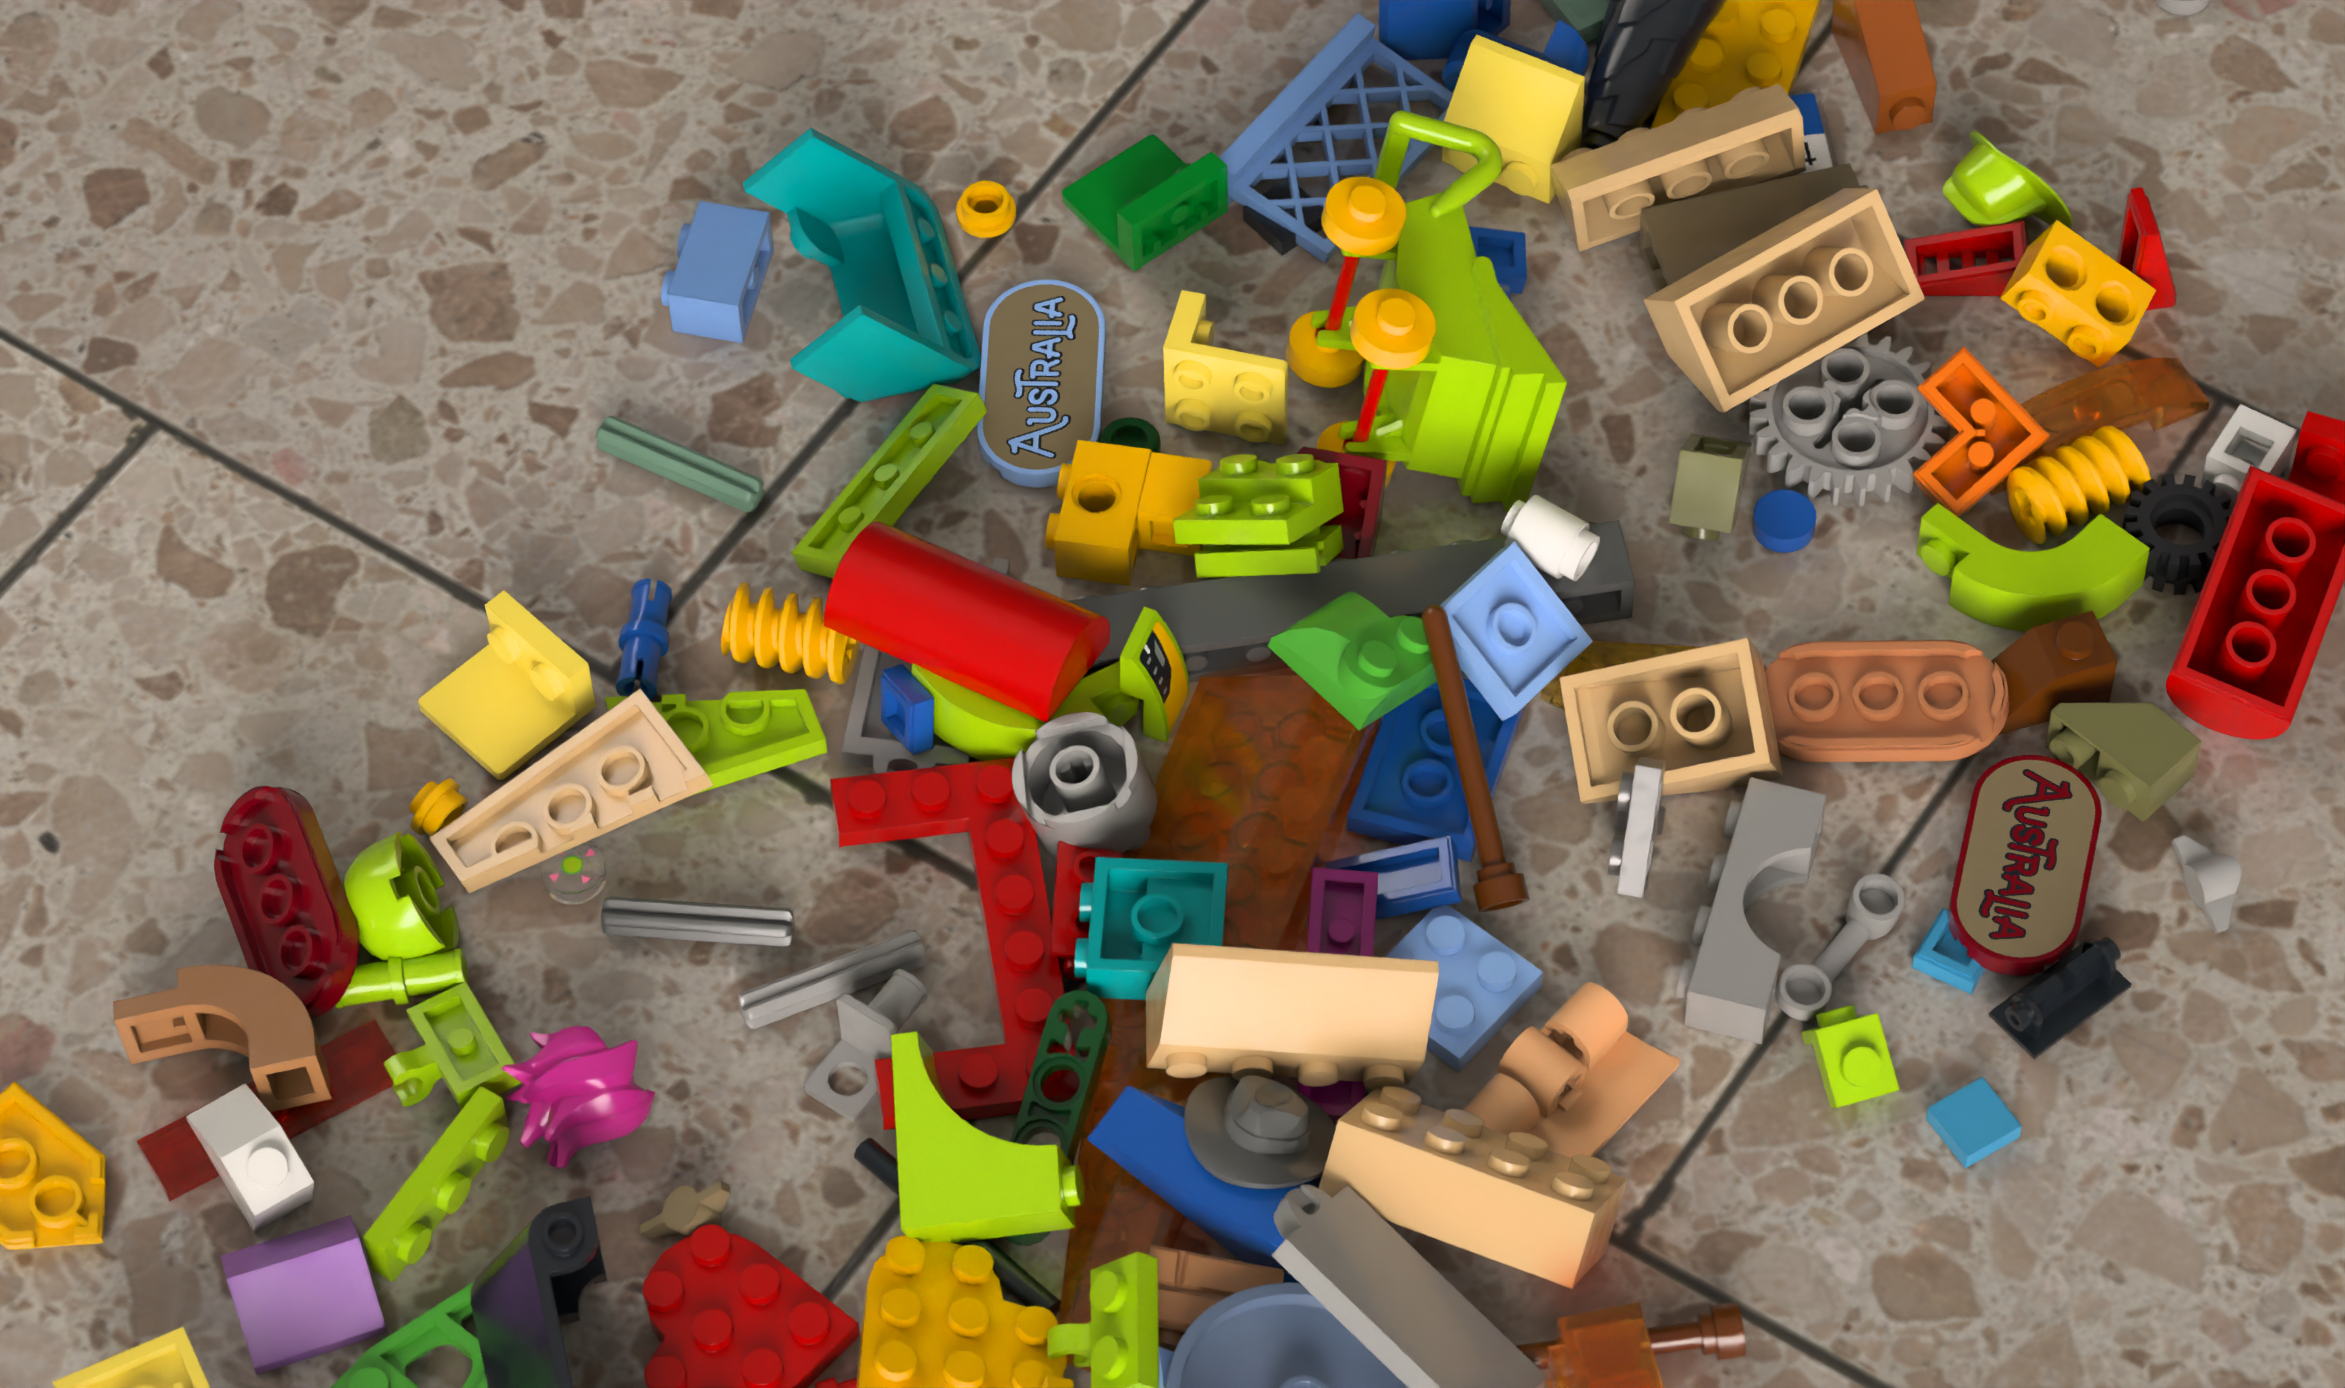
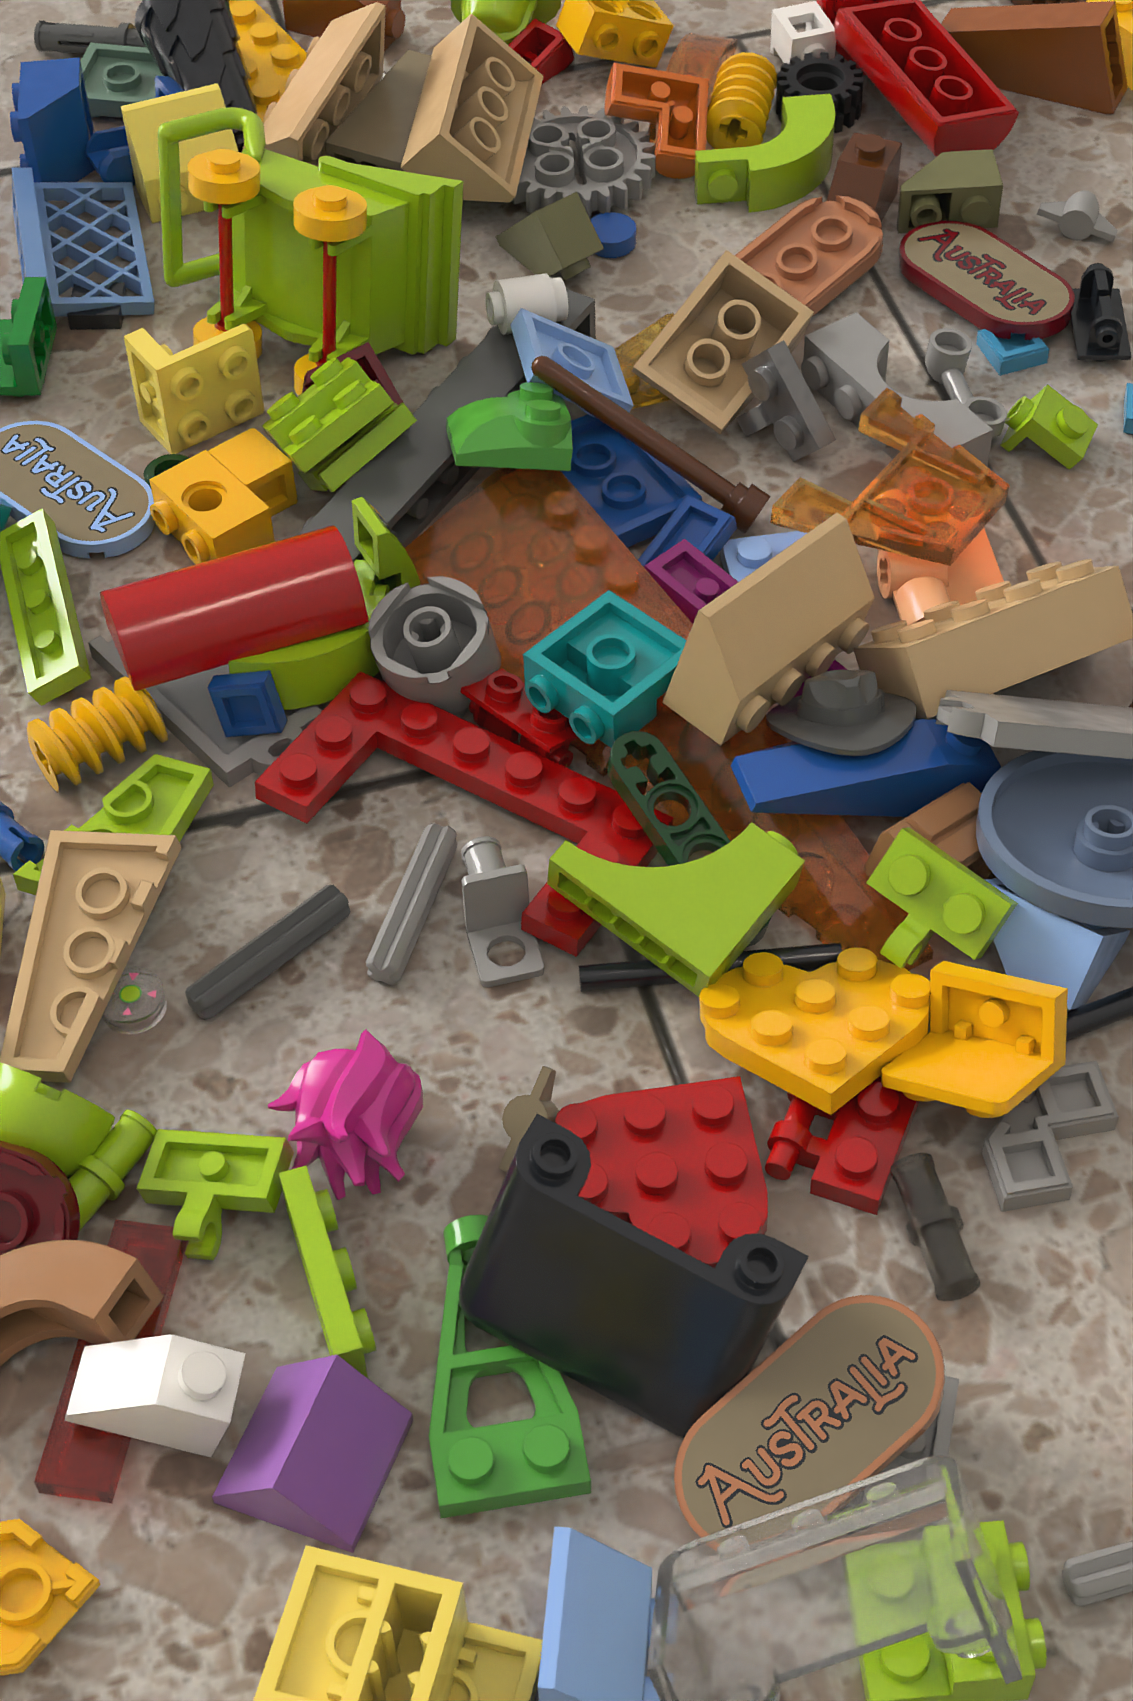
camera: 50 degrees left, 5 degrees down
(1598, 1017) = (919, 505): none -> clear orange wing

